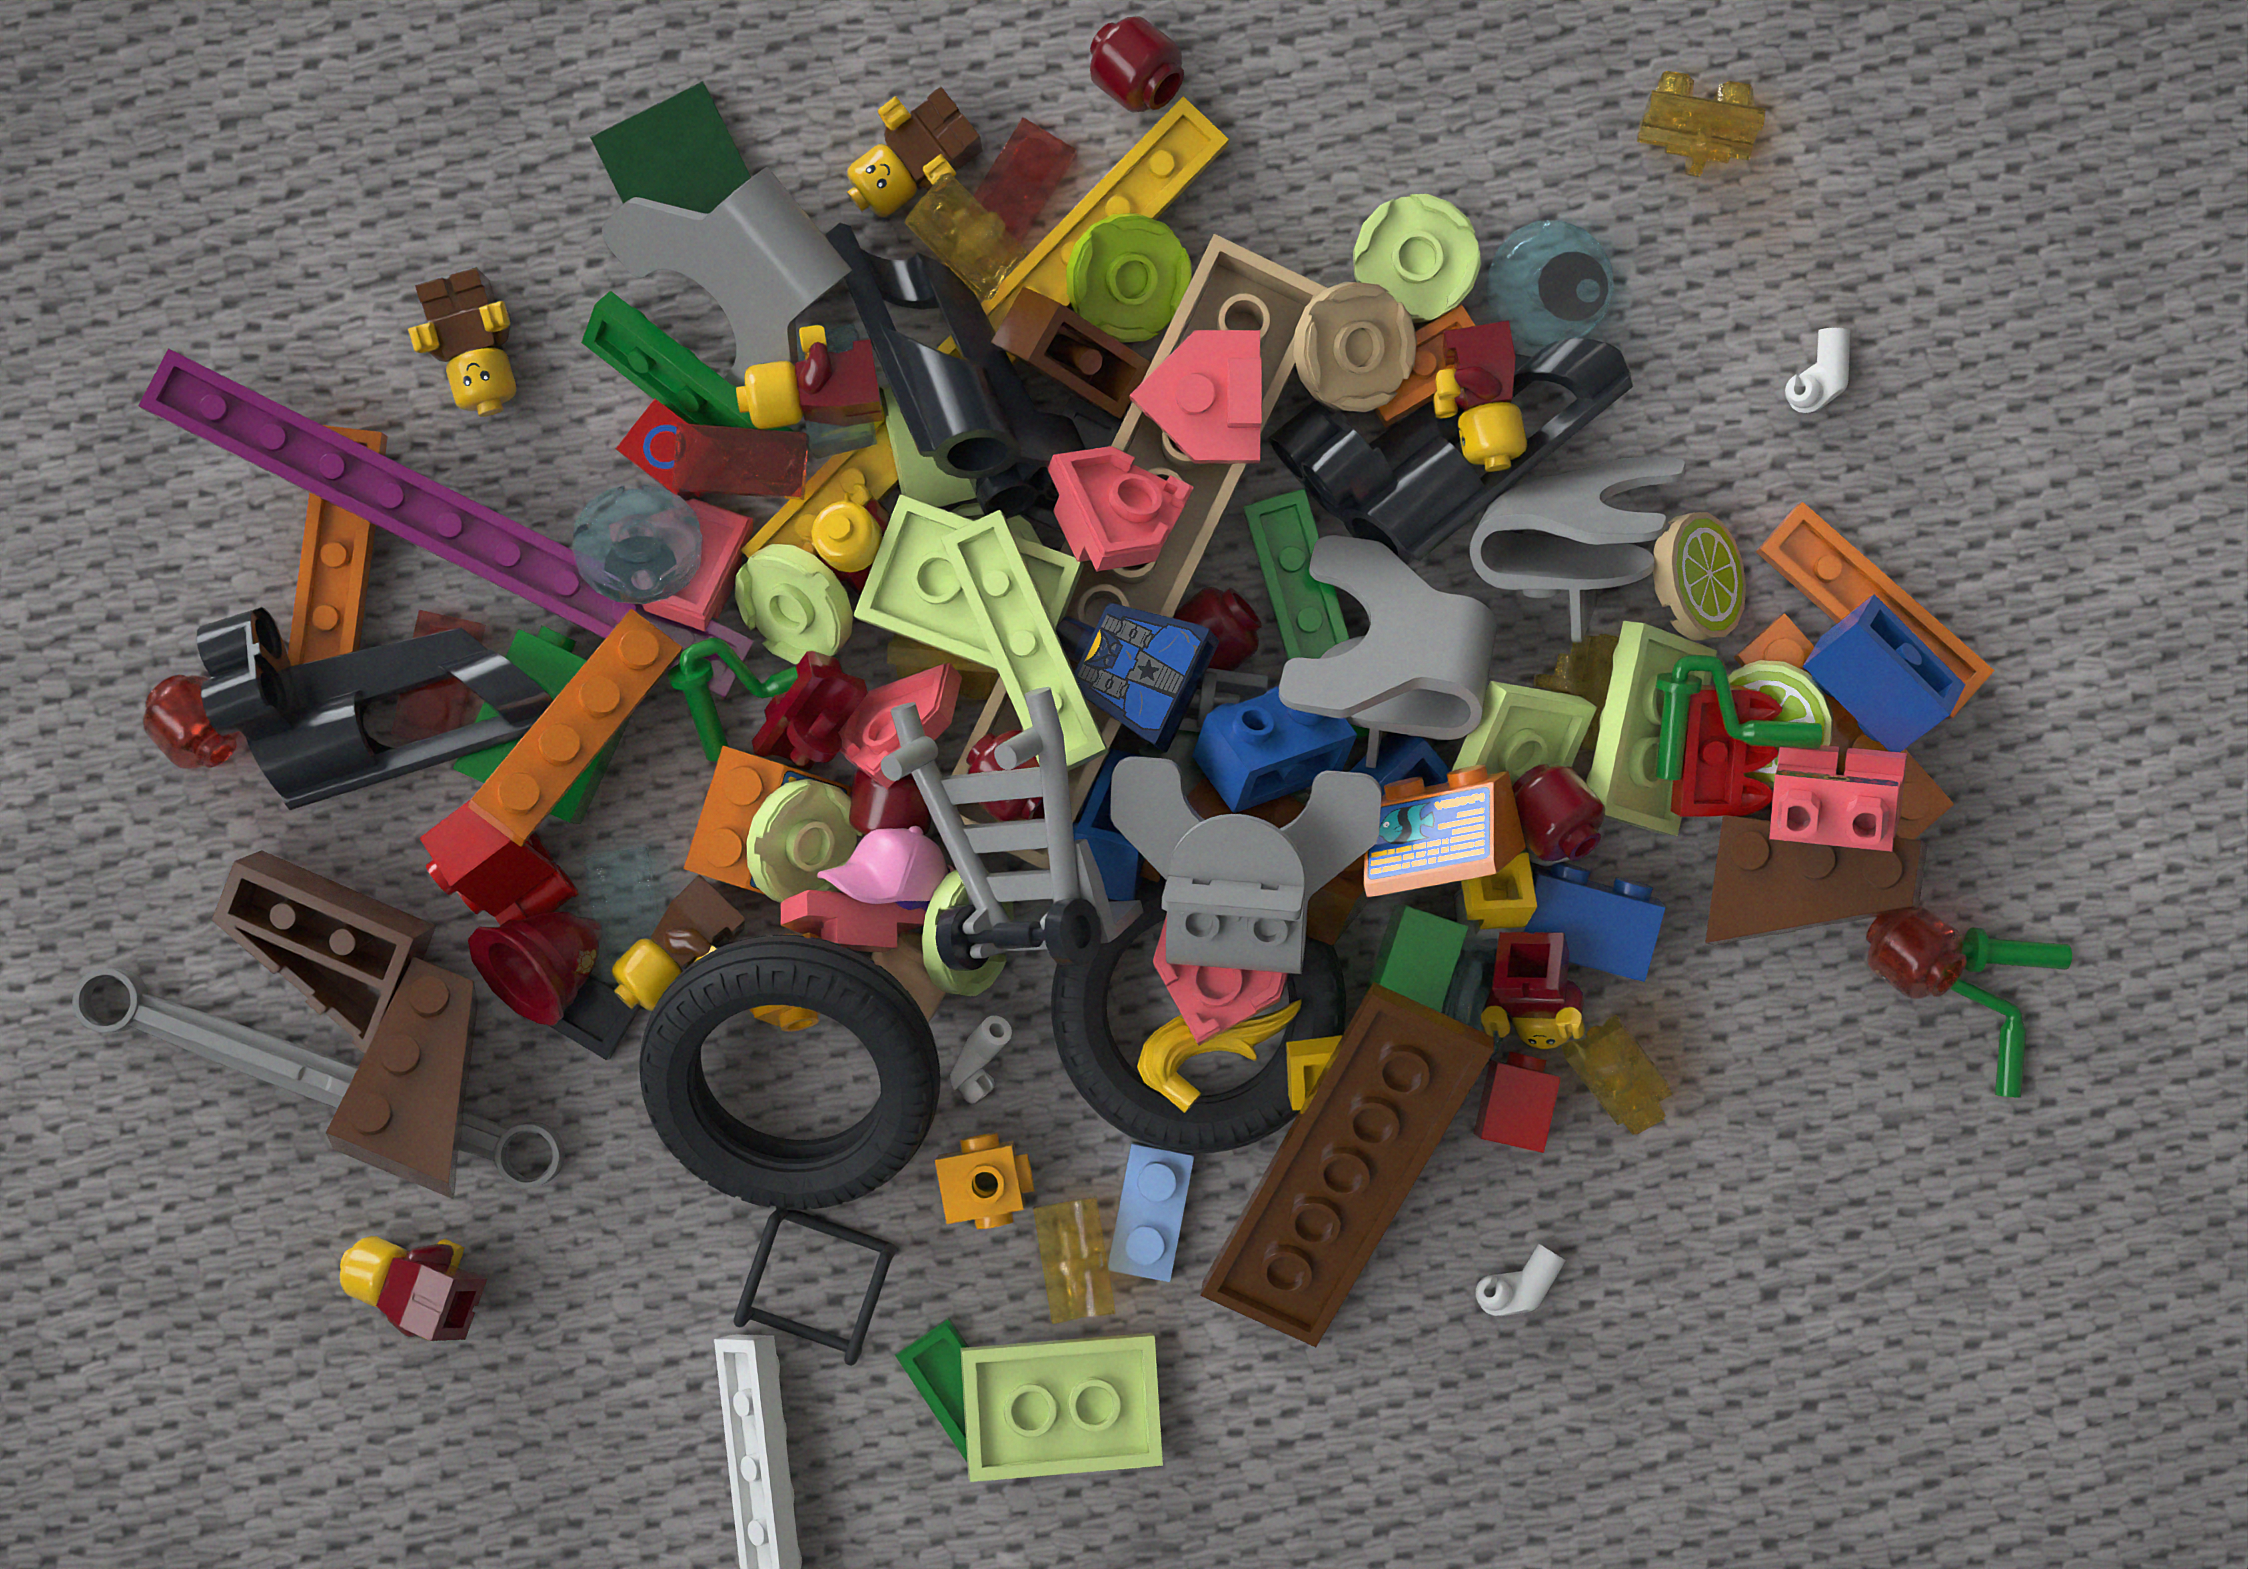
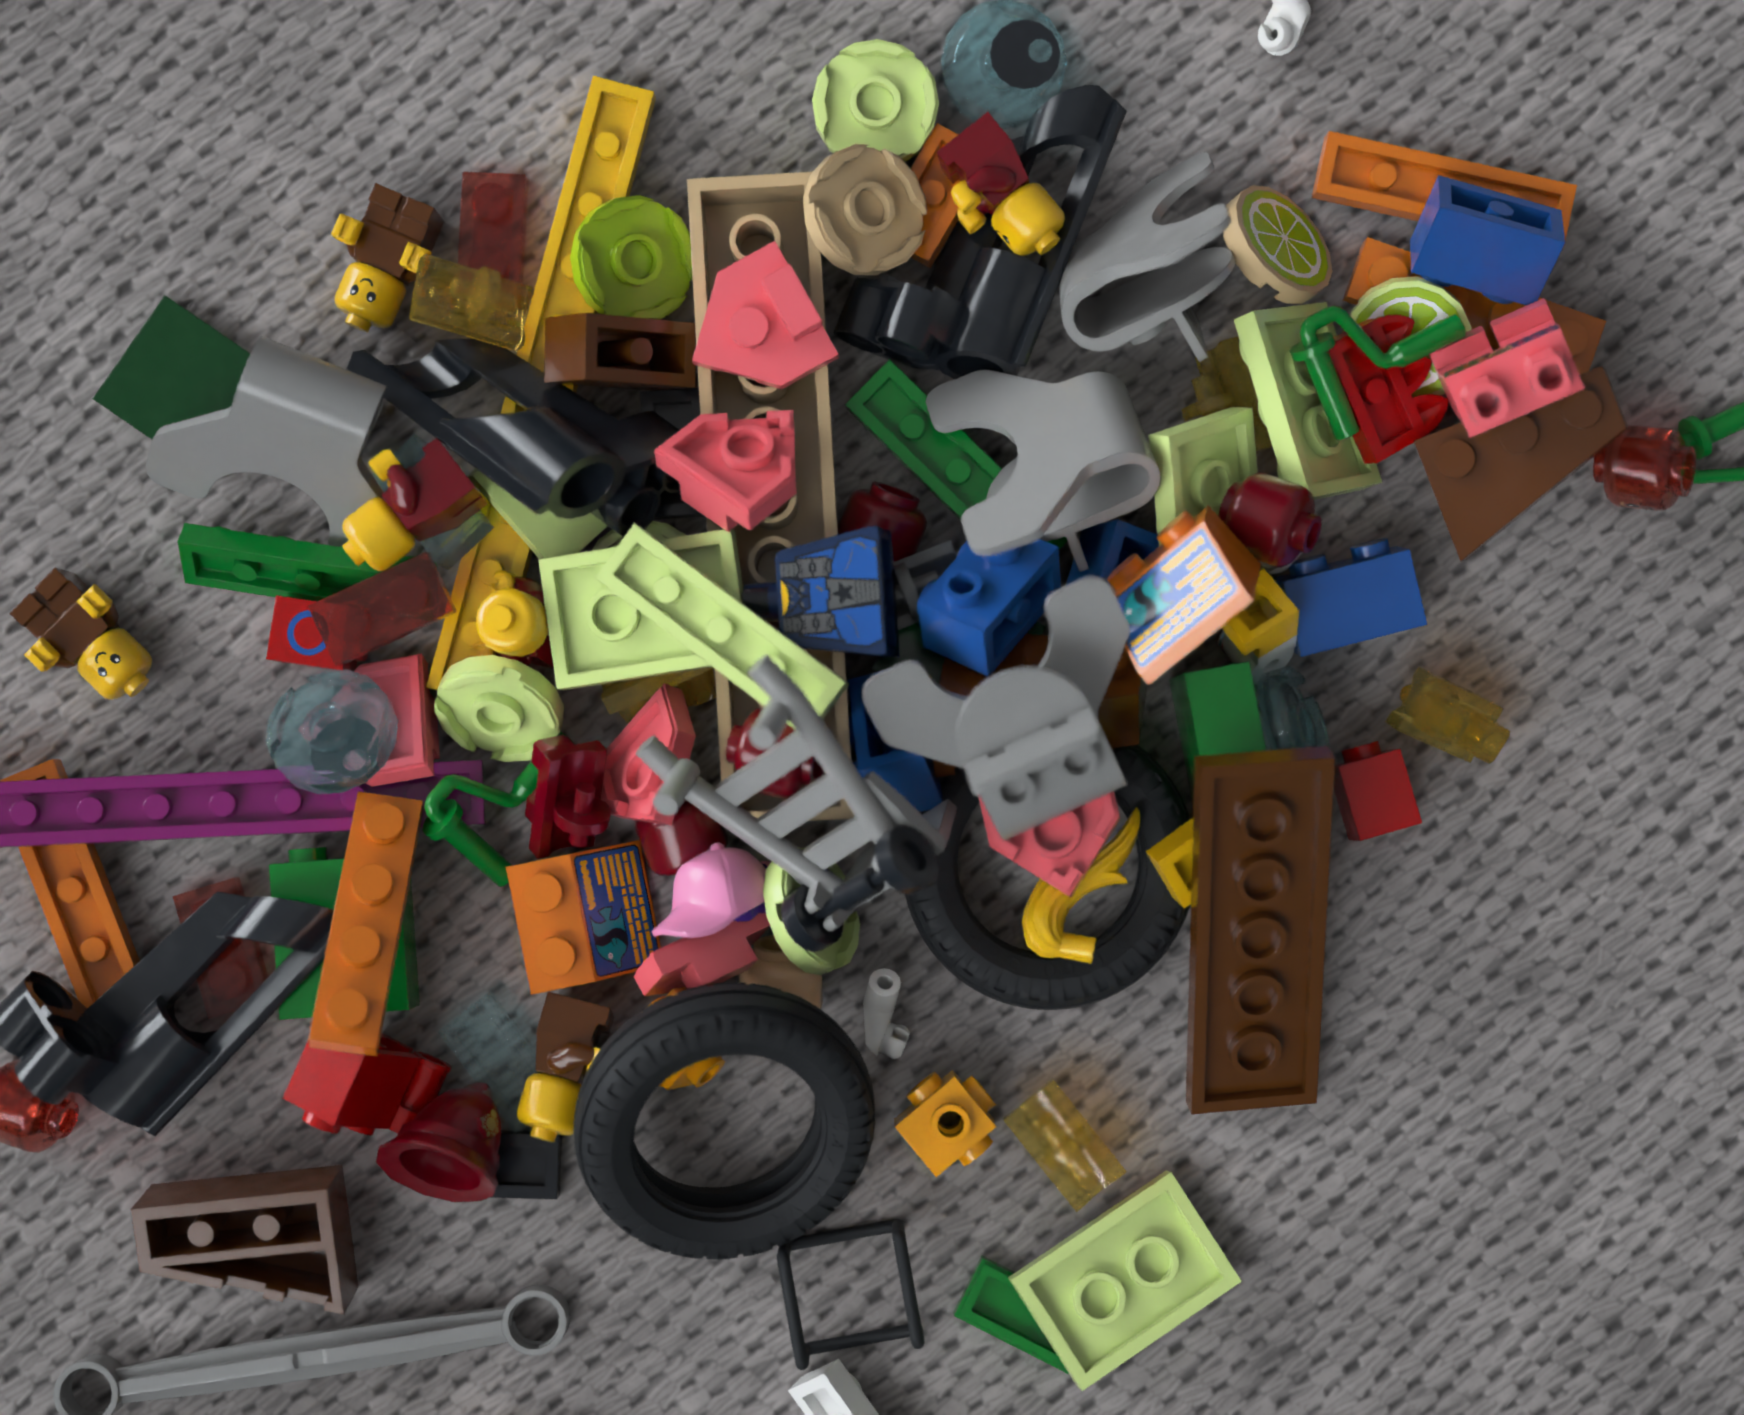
camera: 25 degrees left, 0 degrees up
(413, 1082) = (396, 1314): reddish brown wedge -> none
(797, 835) = (616, 908): yellowish green tile -> none
(1136, 64) = (536, 70): dark red head -> none
(1150, 1212) = (1106, 1065): light blue plate -> none
(1520, 1290) = (1467, 952): white arm -> none
(1534, 990) = (1336, 685): dark red piece -> none

